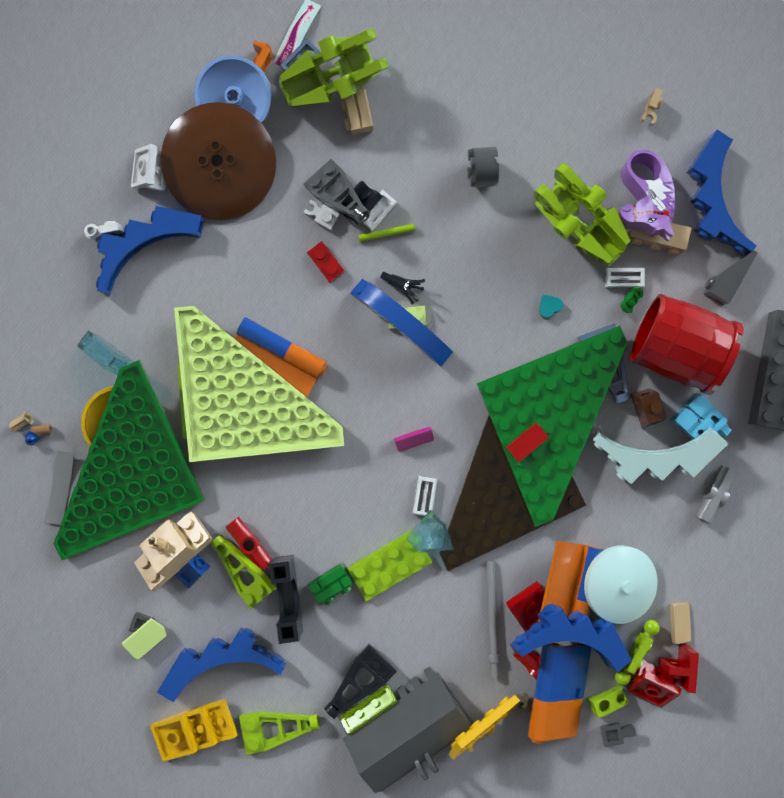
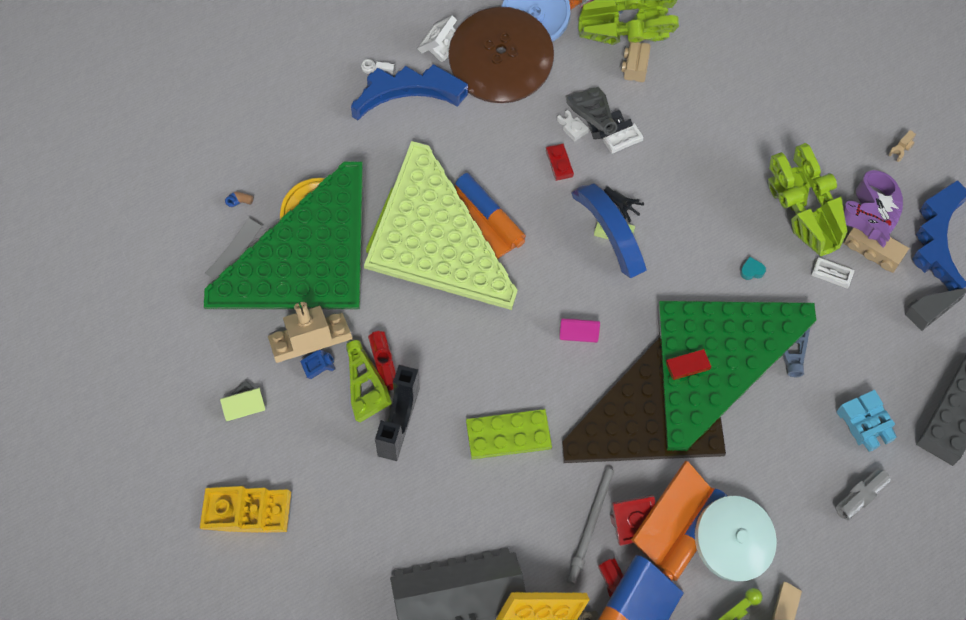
camera: 20 degrees right, 25 degrees down
(21, 422) = (229, 184): tan piece -> none
(103, 352) = (329, 152): clear light blue slope -> none
(190, 664) = (273, 447): blue arch -> none
(253, 733) = (302, 535): lime plate -> none
(330, 584) = (444, 426): green brick -> none
(368, 709) = (428, 560): lime tile -> none
(376, 665) = (455, 521): black plate -> none
(386, 232) = (624, 159): lime bar -> none
(427, 480) = (560, 399): white tile -> none
(430, 534) = (562, 414): clear light blue slope -> none
(483, 167) = (732, 135): dark grey brick -> none
(556, 627) = (695, 577): blue arch -> none
(631, 299) = (833, 291): green piece -> none
(648, 407) = (819, 382): reddish brown torso -> none
(660, 463) = (846, 439): light aqua arch -> none
(686, 343) = (871, 332): red piece -> none

